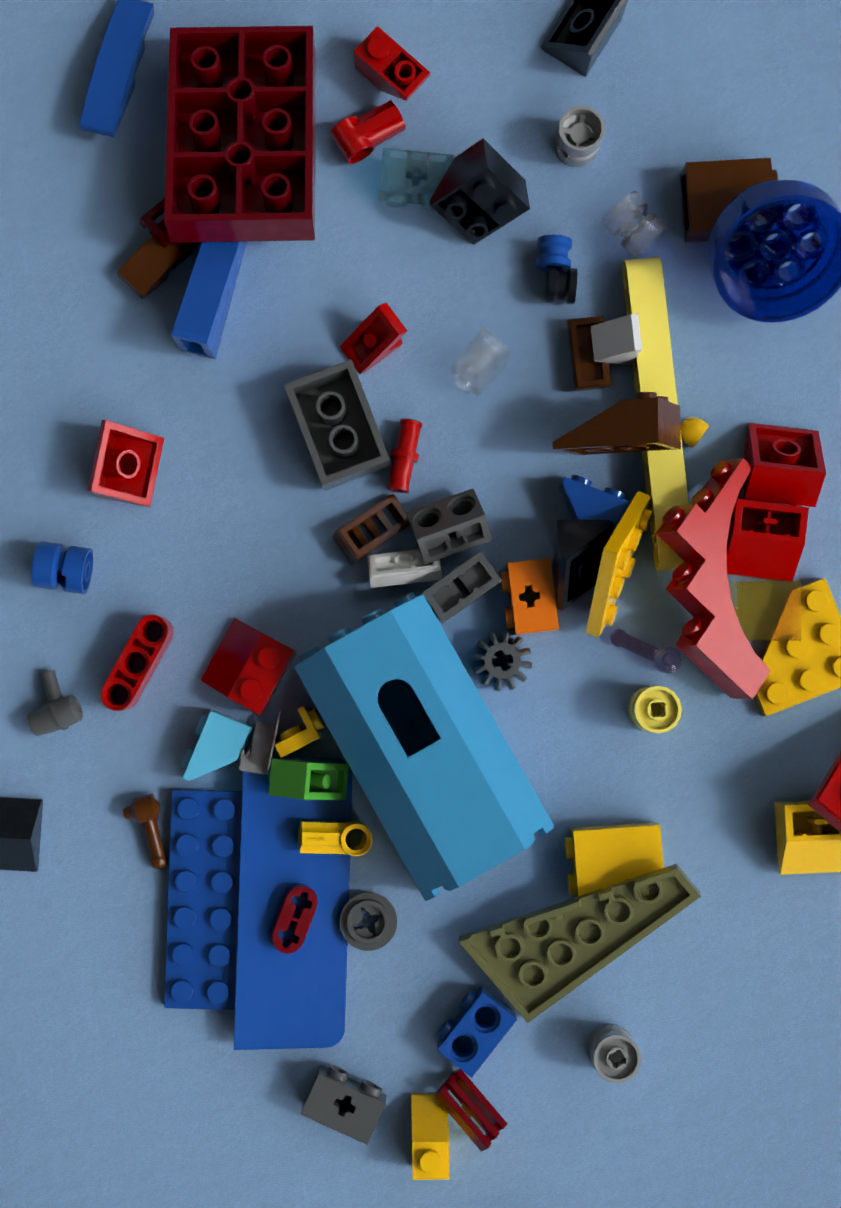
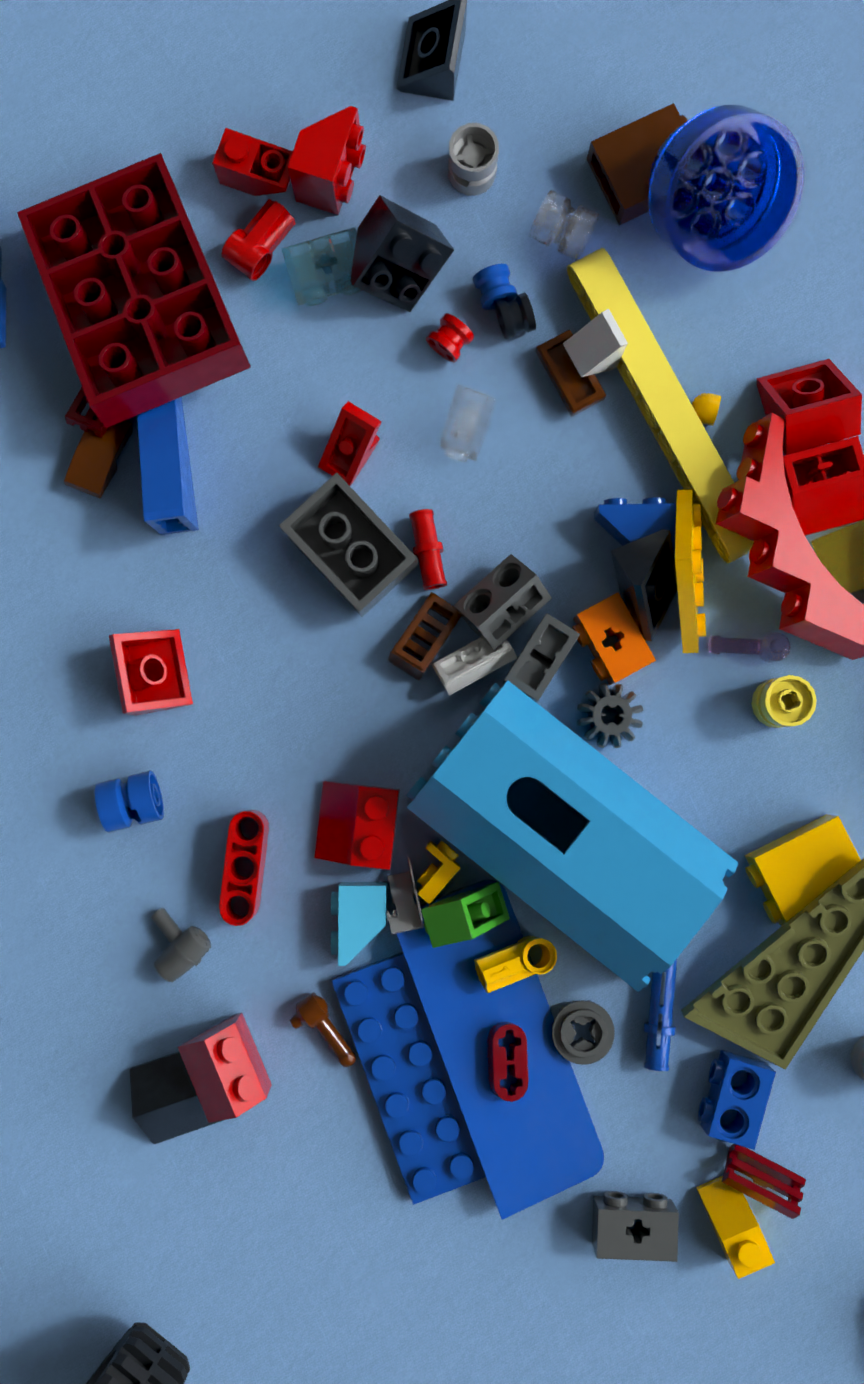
camera: 15 degrees left, 0 degrees up
(52, 826) = (226, 1069): none -> red slope
(424, 967) = (658, 1056): none -> blue pin
(452, 88) = (326, 160): none -> red slope
(497, 281) = (450, 337): none -> red wheel
(628, 426) = (646, 426): reddish brown slope -> none

